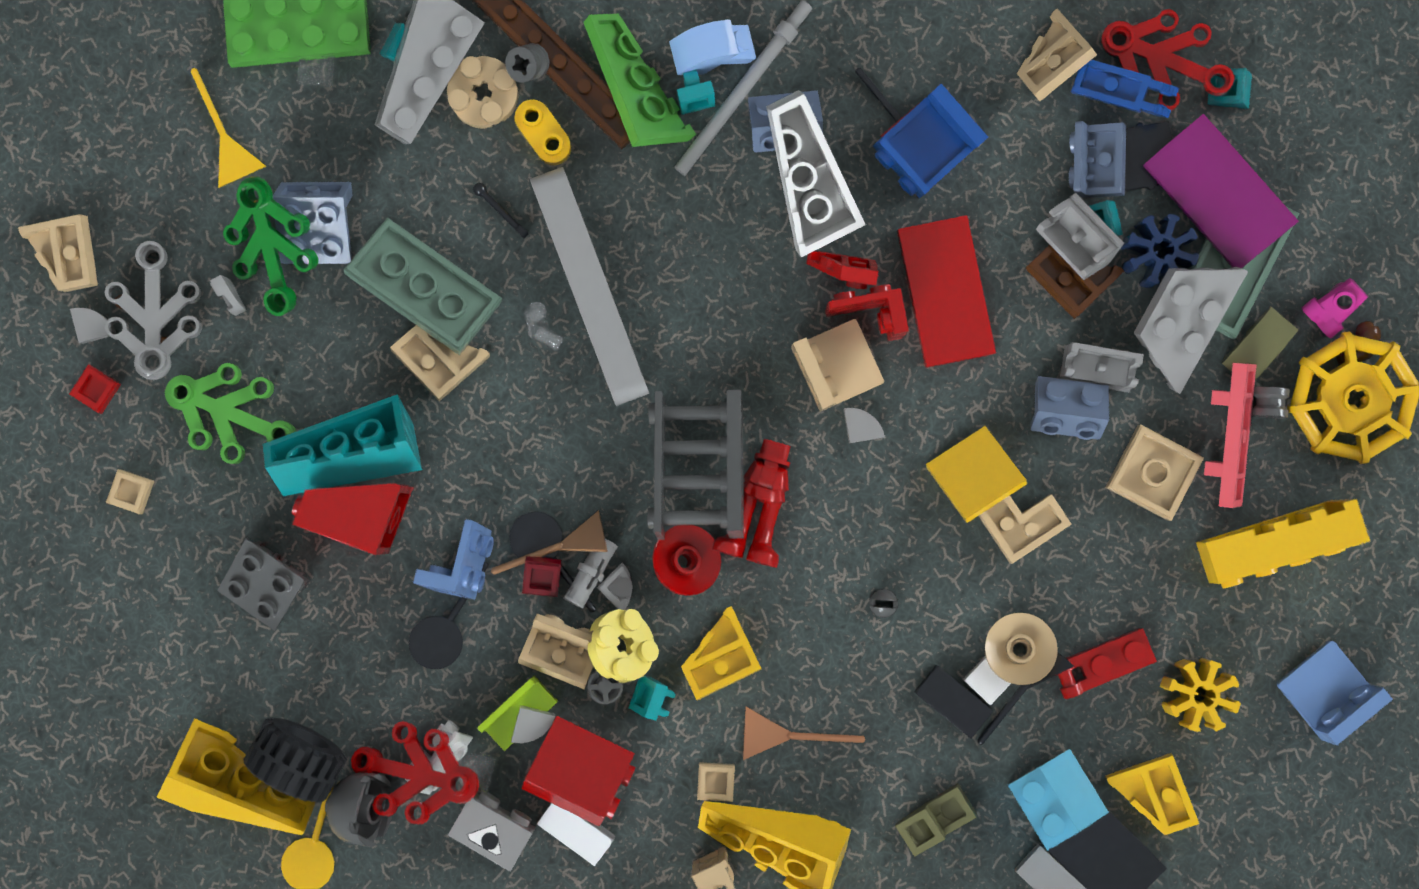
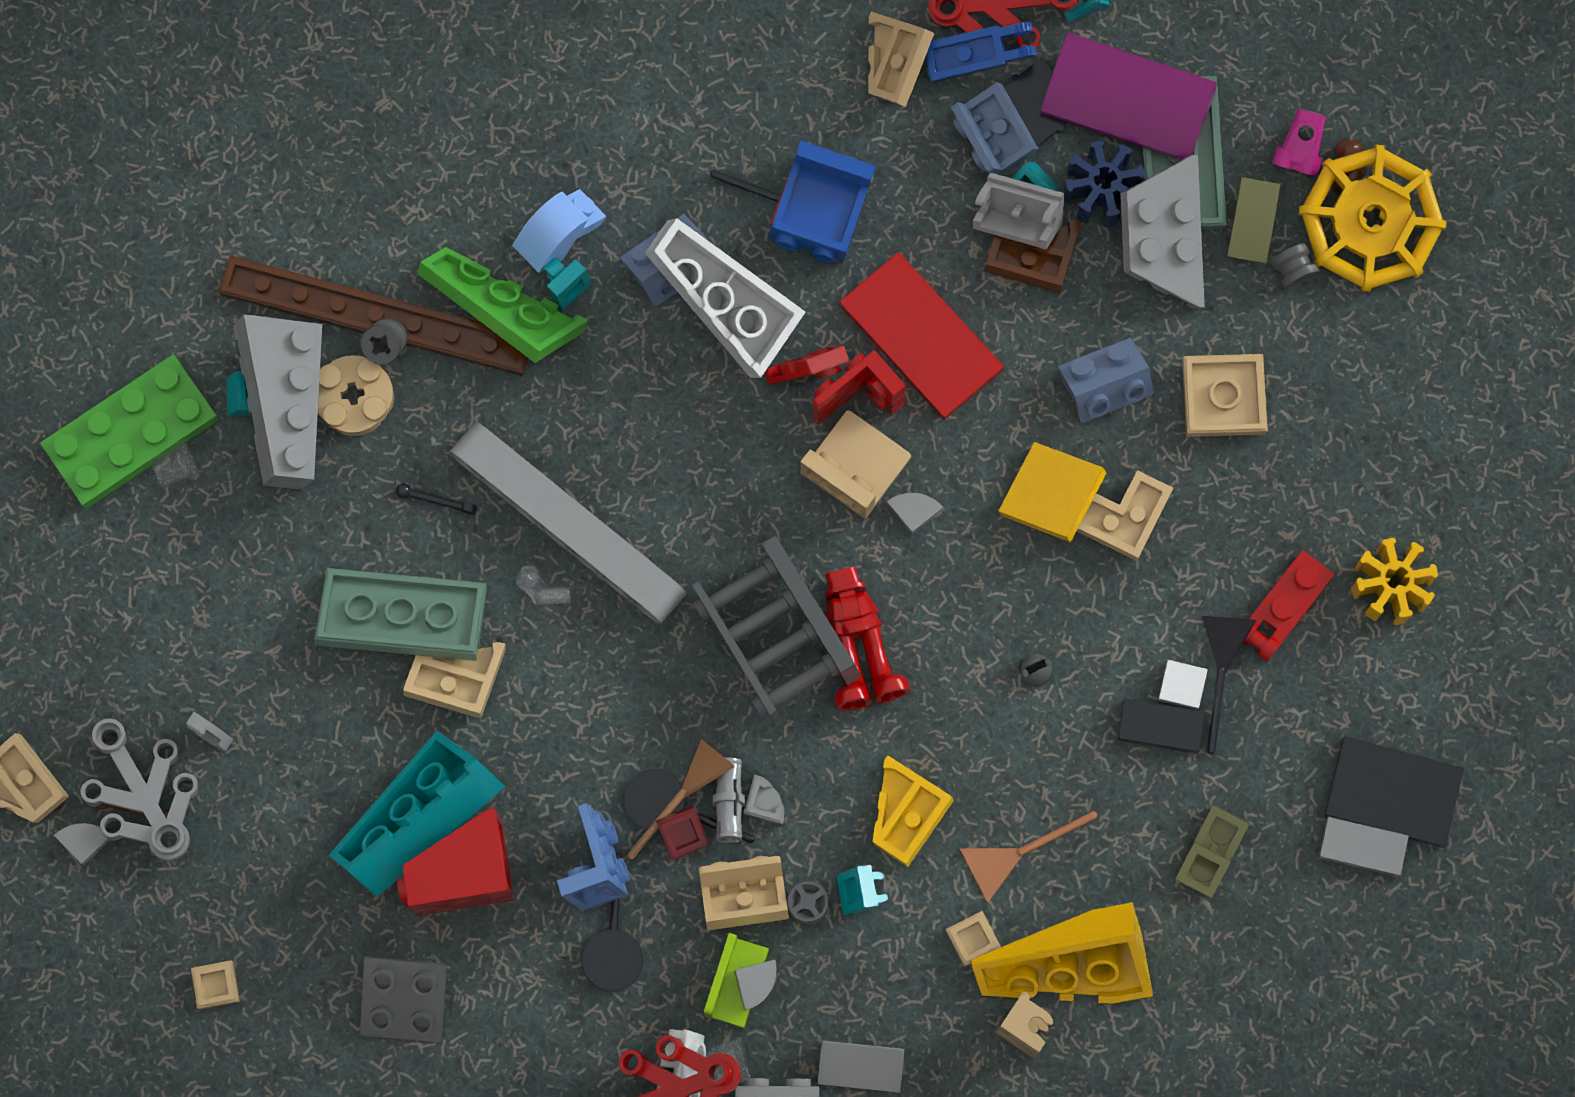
camera: 30 degrees left, 10 degrees down
(95, 389) = (122, 902): red tile -> none
(222, 409) = (264, 848): bright green plant -> none
(233, 158) = (137, 597): yellow piece -> none
(268, 241) = (221, 652): green plant -> none
(326, 210) = (256, 614): sand blue bracket -> none
(542, 131) = (434, 400): yellow plate -> none
(579, 772) = (831, 999): red brick -> none
(638, 640) = (798, 832): light yellow plate -> none
(702, 561) = (817, 718): red dish -> none
(783, 34) = (619, 178): light grey bar -> none
(1039, 645) = (1190, 617): tan dish -> none
(1058, 799) = (1315, 760): medium azure slope -> none
(1101, 366) = (1112, 322): light grey hinge -> none
(1157, 792) = (1411, 701): yellow wing -> none
(1234, 462) = (1294, 342): coral hinge -> none
(1283, 541) = (1383, 391): yellow wedge -> none
(1332, 694) = (1517, 509): medium blue bracket -> none

